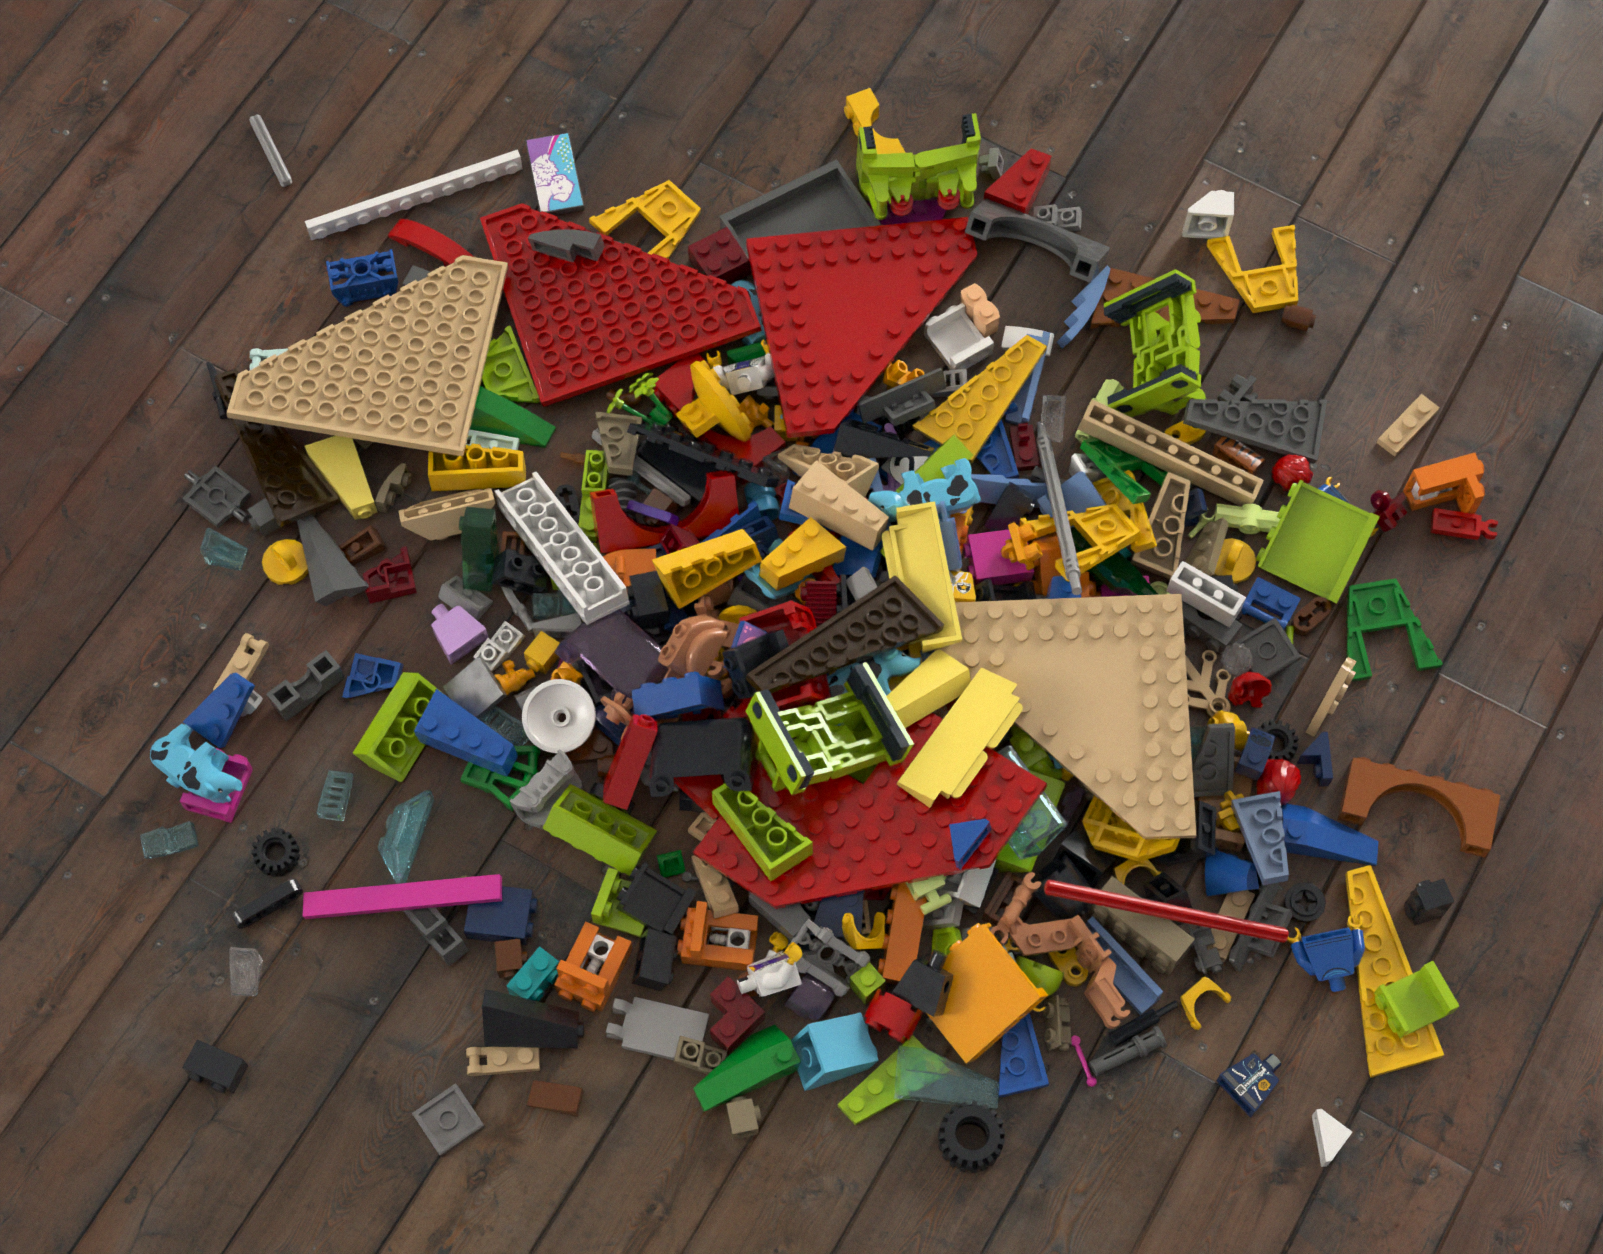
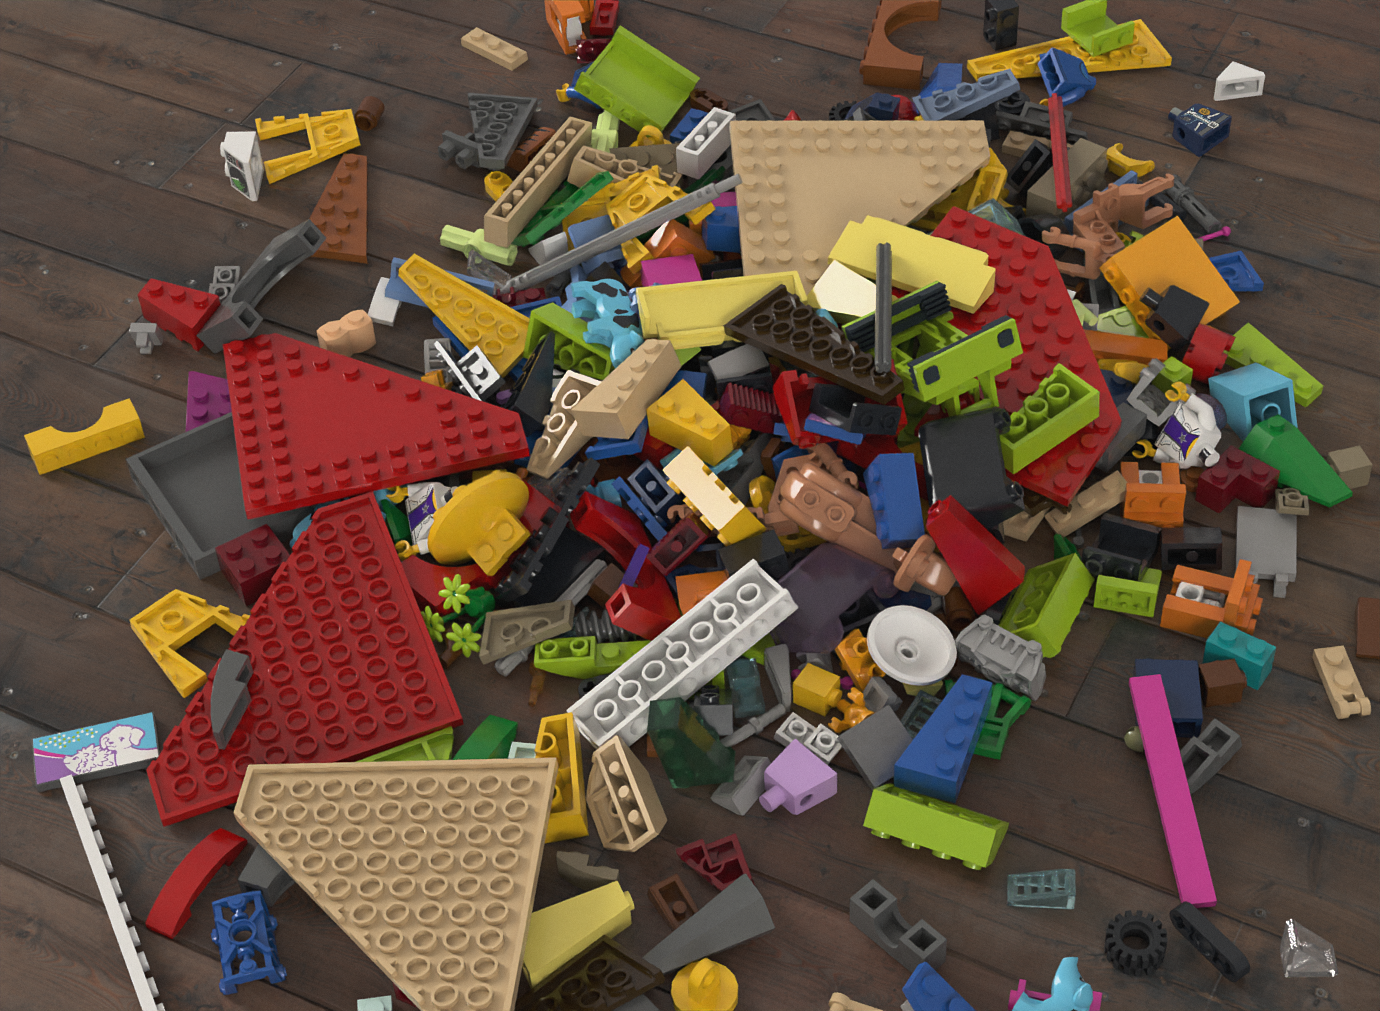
camera: 90 degrees left, 20 degrees down
(371, 675) = (864, 860): blue slope -> none
(404, 835) = (1089, 798): clear light blue wedge -> none
(528, 1023) = (1300, 651): black slope -> none
(876, 692) = (883, 308): none -> dark grey axle
(906, 177) = (164, 398): lime container -> none
(935, 1079) = (1264, 325): clear light blue wedge -> none
(957, 338) = (391, 351): white panel -> none
(967, 838) = (1033, 251): blue slope -> none
(975, 1115) = (1313, 298): black tyre -> none
(1018, 548) = (673, 252): light orange hips -> none
(1086, 303) = (352, 258): medium blue slope -> none
(1173, 348) = (399, 188): lime container -> none
(1229, 874) = (1004, 135): blue slope -> none
(1291, 470) = (550, 112): red hair -> none
(1319, 755) = (861, 88): dark blue slope -> none
(1334, 693) = (798, 70): tan wing -> none
(1381, 607) = (705, 62): green wing -> none

